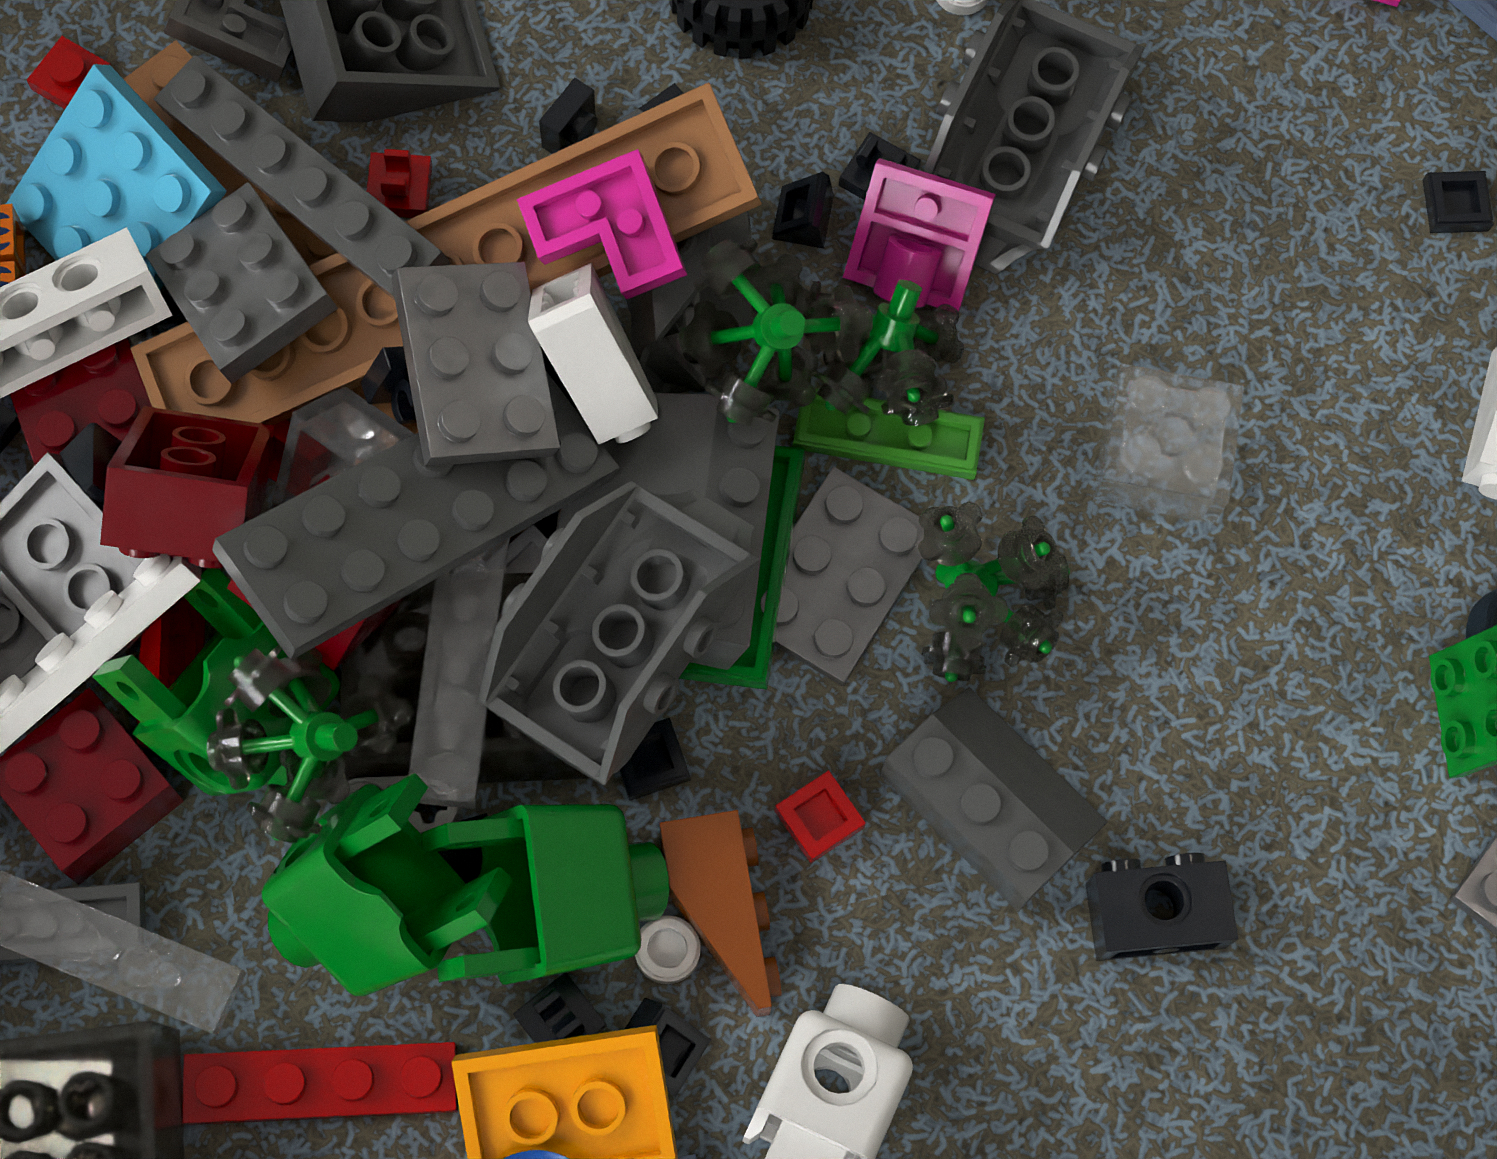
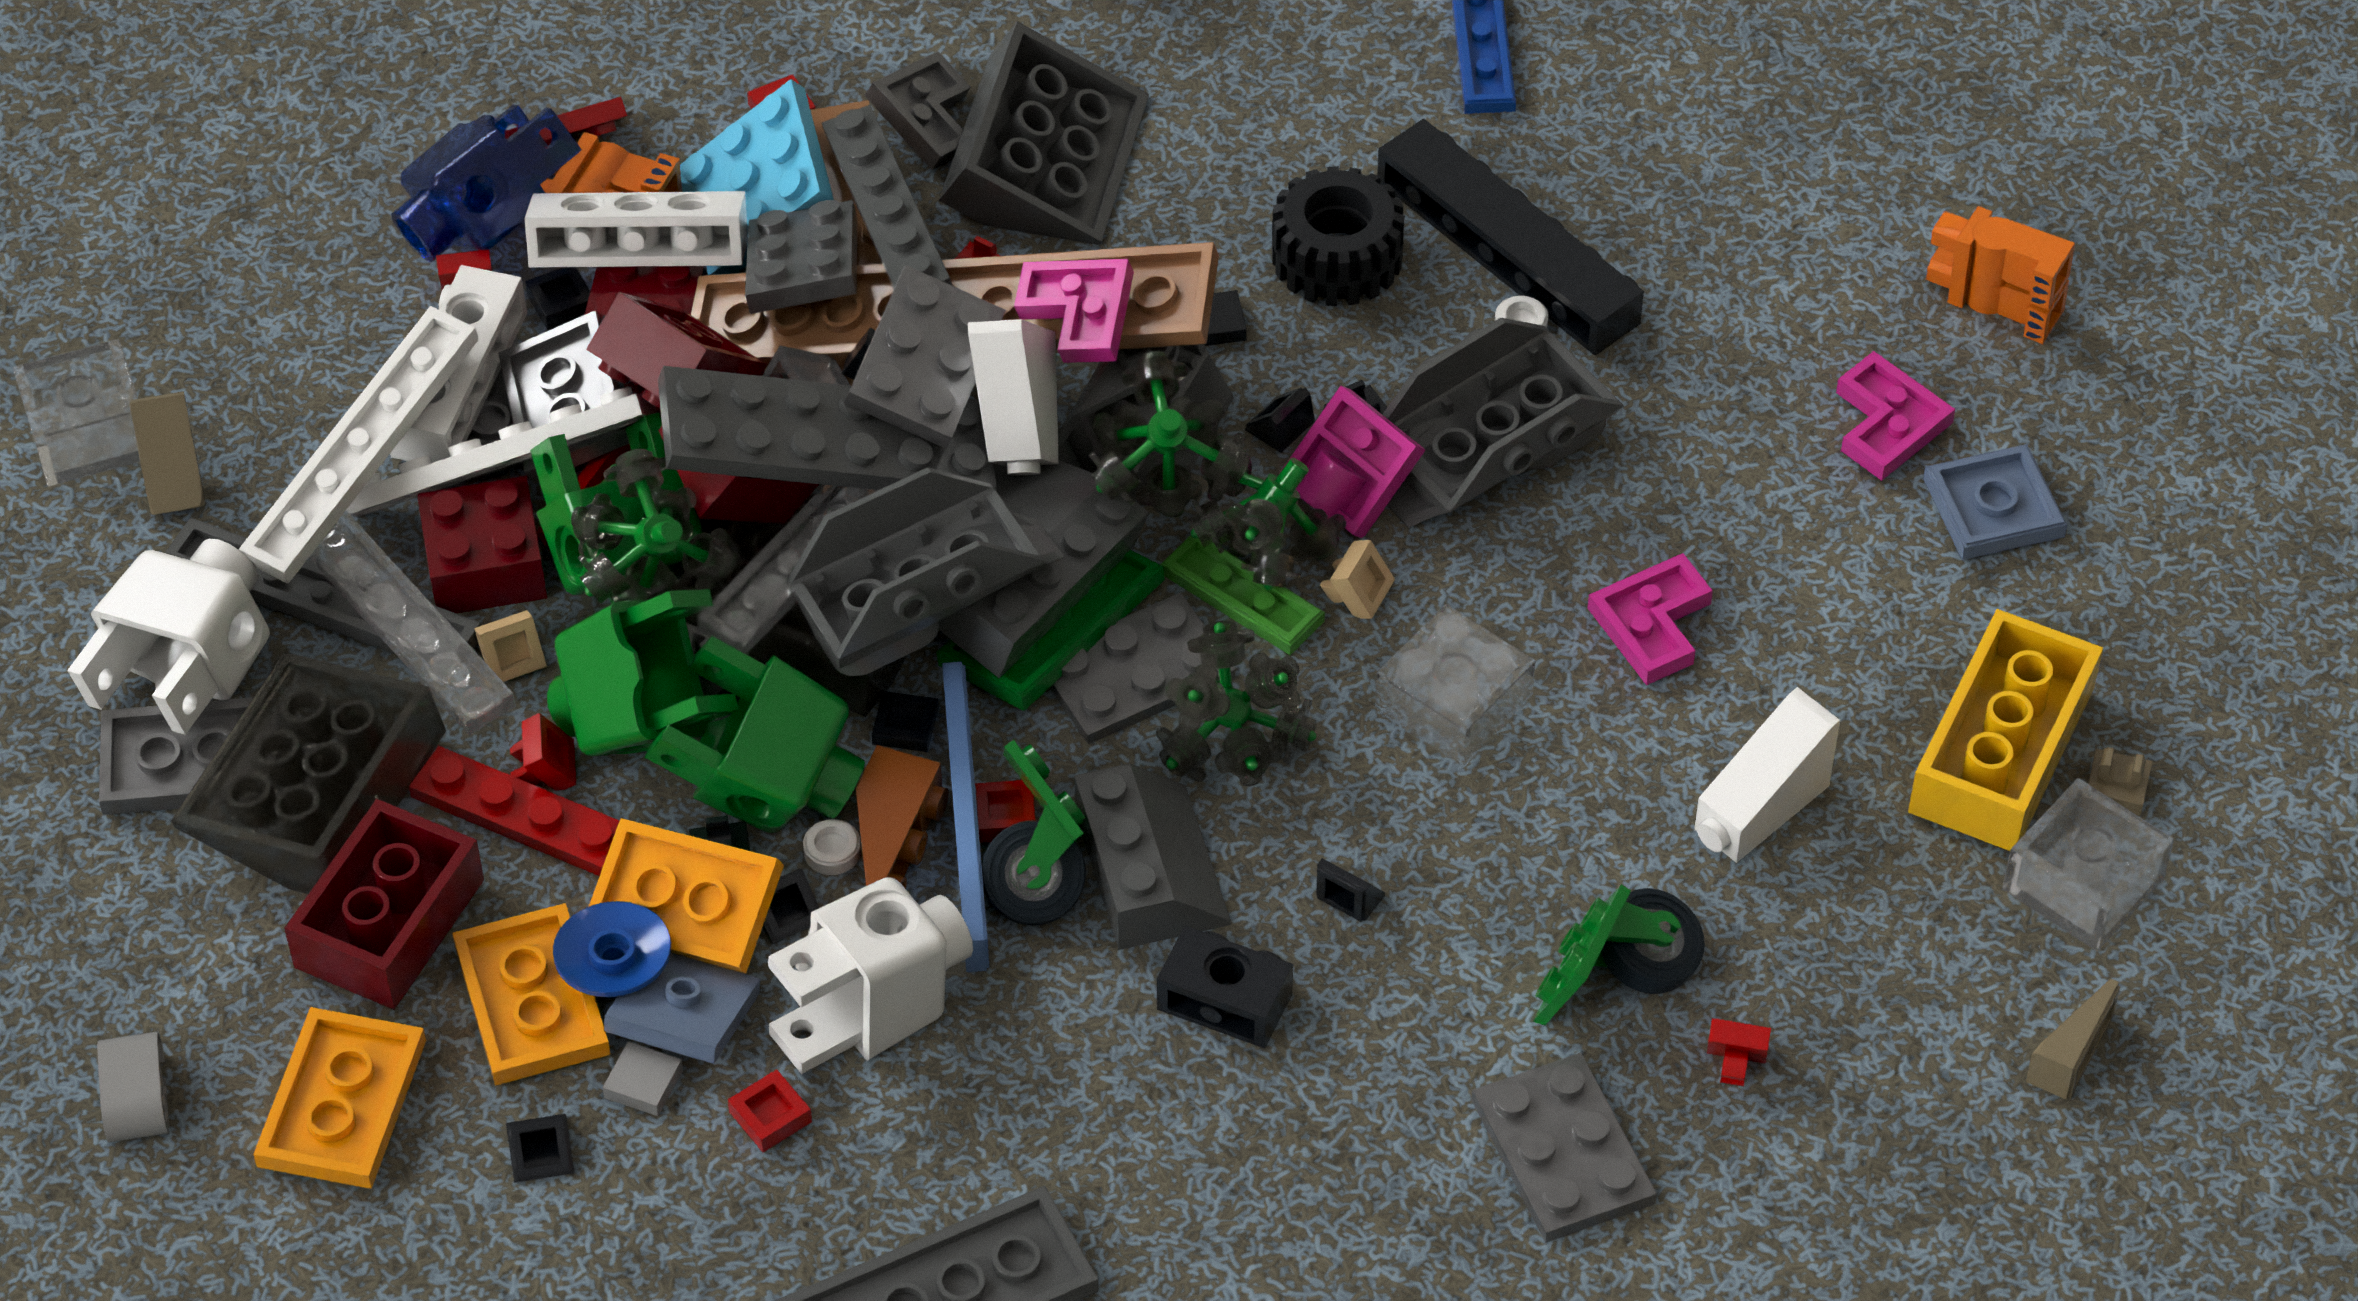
camera: 35 degrees right, 20 degrees down
(189, 893) = (511, 646): none -> tan tile
(308, 1005) = (545, 754): none -> red tile
(786, 846) = (965, 813): none -> medium blue tile
(900, 874) = (1034, 866): none -> plate
(1001, 365) = (1359, 580): none -> tan tile
(1201, 727) = (1346, 891): none -> black slope
(1279, 275) = (1642, 611): none -> dark pink plate
(1457, 202) = (1832, 635): black tile -> none

